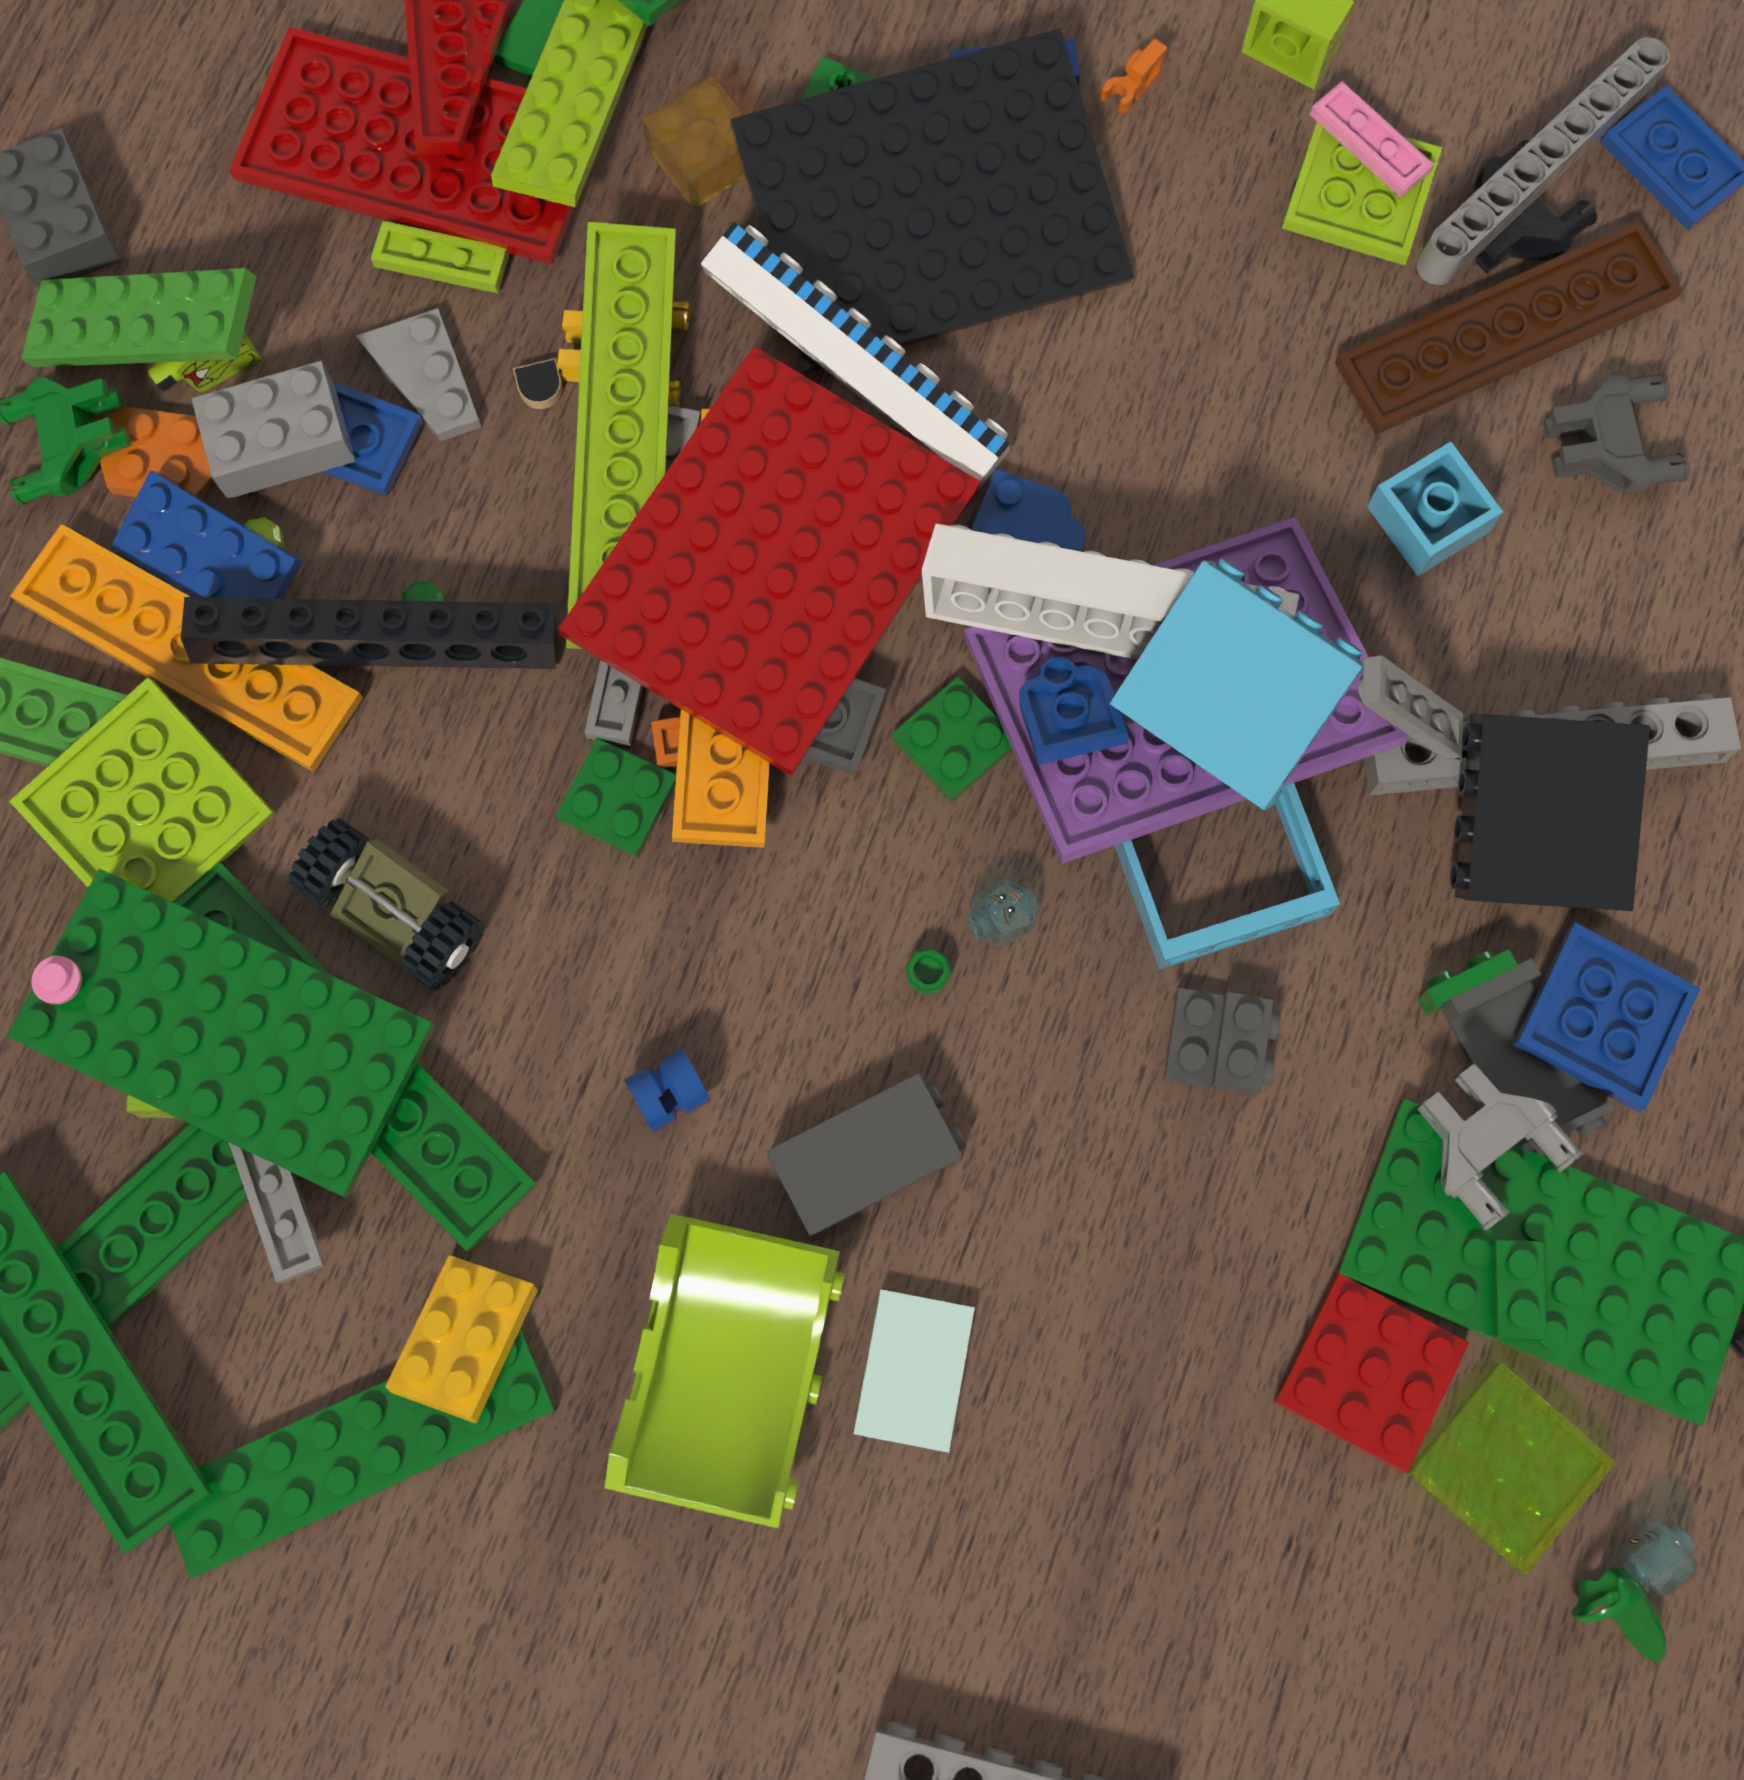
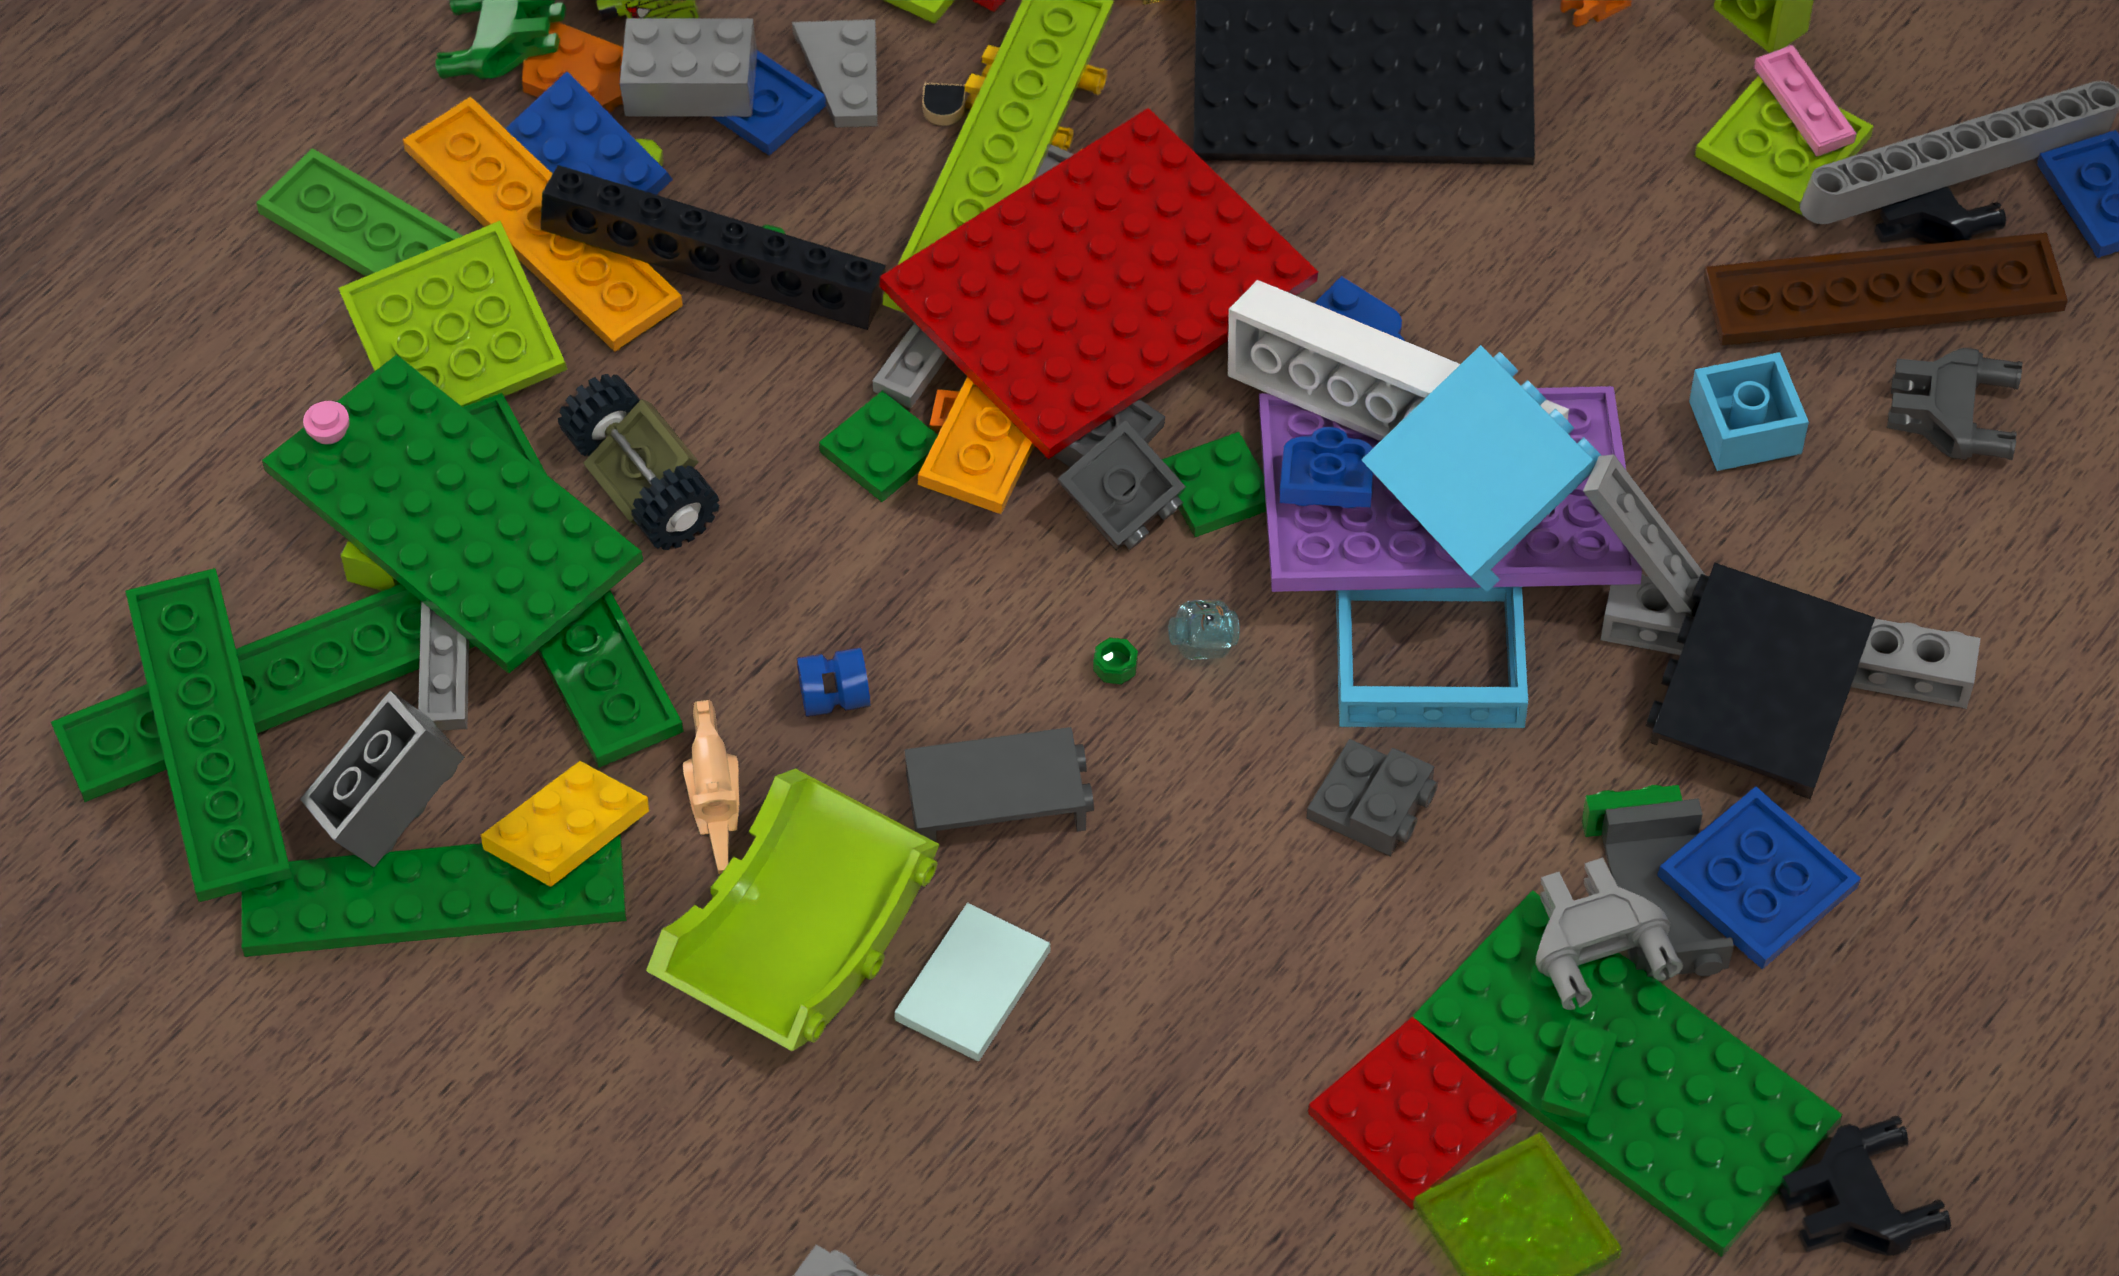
camera: 20 degrees right, 20 degrees down
(265, 1368) = (382, 779): none -> dark grey brick
(589, 1240) = (712, 783): none -> light nougat animal
(853, 354) = (1240, 142): white brick -> none
(874, 785) = (1123, 486): none -> dark grey plate

